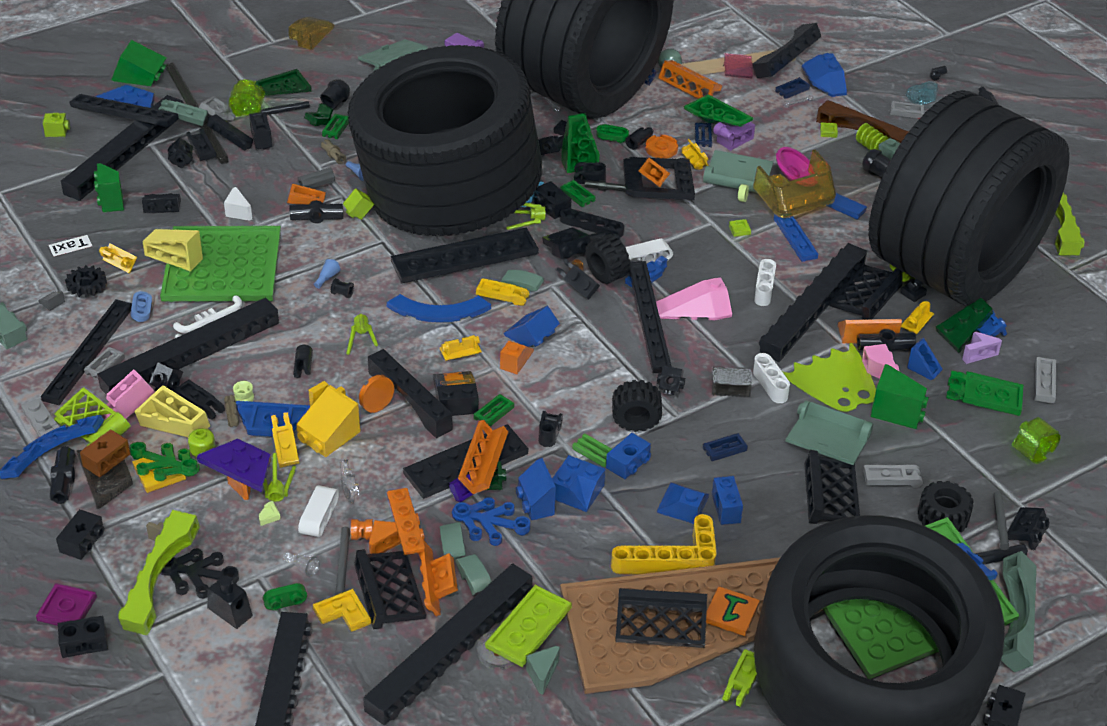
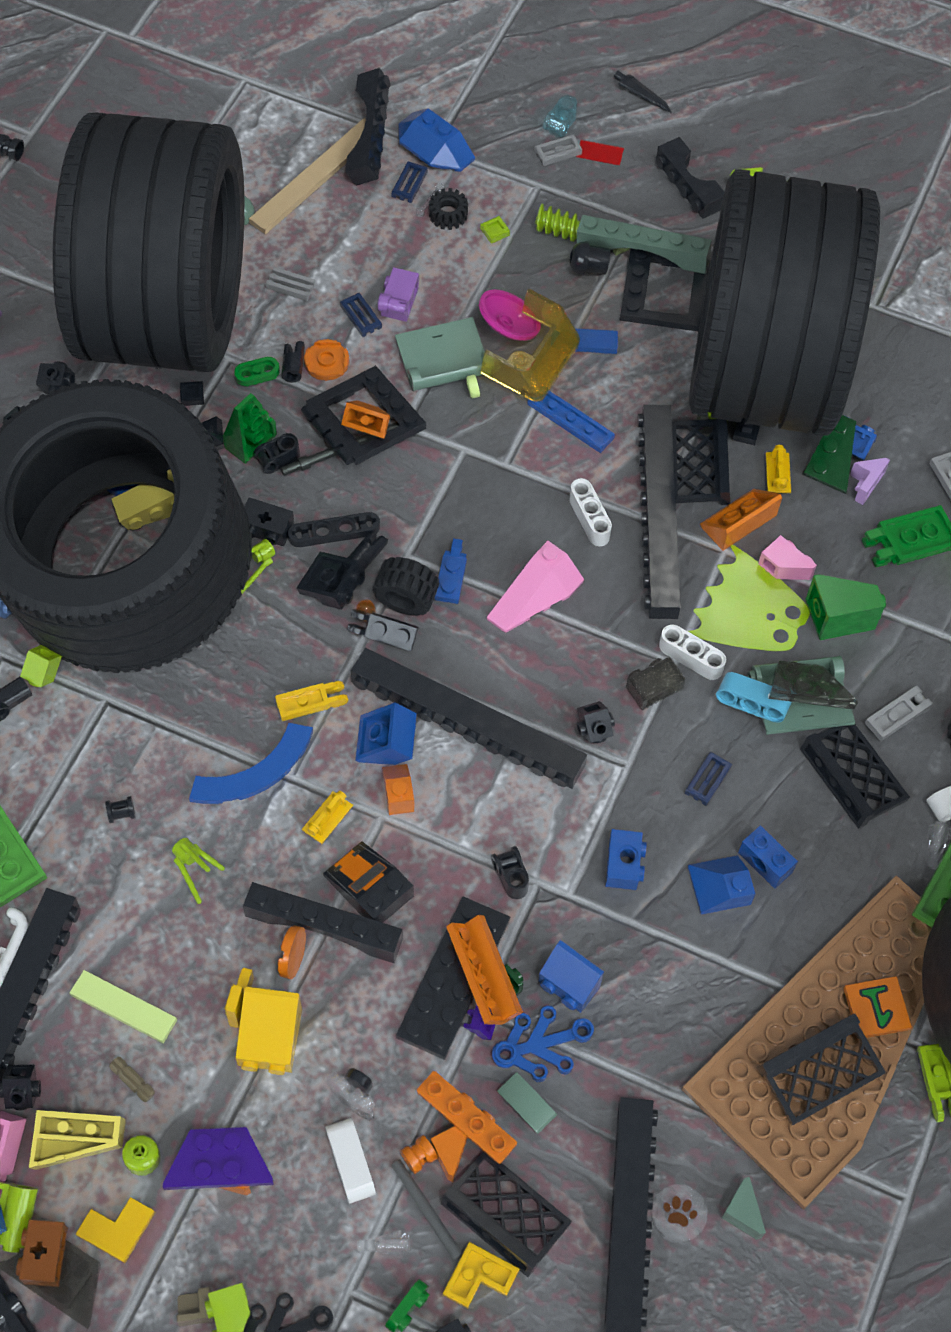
camera: 35 degrees left, 20 degrees up
(187, 466) = (118, 1209): green plant -> none
(200, 398) = (78, 1087): black hinge -> none
(243, 391) = (124, 1039): yellowish green wheel -> none
(257, 416) = (189, 1061): blue wing -> none
(258, 376) = (123, 1006): none -> yellowish green tile
(269, 514) = (293, 1198): yellowish green tile -> none
(276, 490) = (277, 1162): lime plant -> none
(285, 442) = (237, 1089): yellow hinge -> none
(303, 360) = (159, 949): black hinge -> none
(330, 268) = (81, 790): medium blue cone -> none
(360, 477) = (358, 1080): none -> black tile
(438, 578) = (551, 1164): orange bracket -> none
(464, 255) = (224, 670): black plate -> none
(474, 572) = (585, 1132): sand green slope -> none
(496, 412) = (427, 904): green tile -> none
(523, 279) = (319, 667): sand green slope -> none
(528, 625) = (693, 1166): lime tile -> none
(575, 194) = (281, 494): green tile -> none
(578, 483) = (601, 933): blue slope -> none
(585, 334) = (469, 718): none -> black brick
(596, 447) = (579, 862): bright green tile -> none
(637, 405) = (593, 789): black tyre -> none
(649, 251) = (434, 541): white beam -> none
(649, 316) = (504, 641): black tile -> none
(669, 558) = (767, 970): yellow beam -> none
(675, 106) = (292, 281): none -> light grey tile
(687, 73) = (288, 228): orange fence -> none
(693, 153) = (385, 358): yellow hinge -> none
(715, 111) = (362, 277): green wedge -> none
(738, 65) = (326, 179): clear pink piece -> none
(739, 227) = (502, 441): lime tile -> none
(791, 415) = (751, 697): none -> medium azure beam
(805, 107) = (444, 218): none -> black tyre
(834, 423) = (809, 685): none -> clear smoke wing
(848, 118) = (494, 202): reddish brown arch -> none
(888, 337) = (761, 531): black piece -> none
(923, 360) = (826, 531): blue slope -> none
(936, 72) = (551, 72): black arm -> none

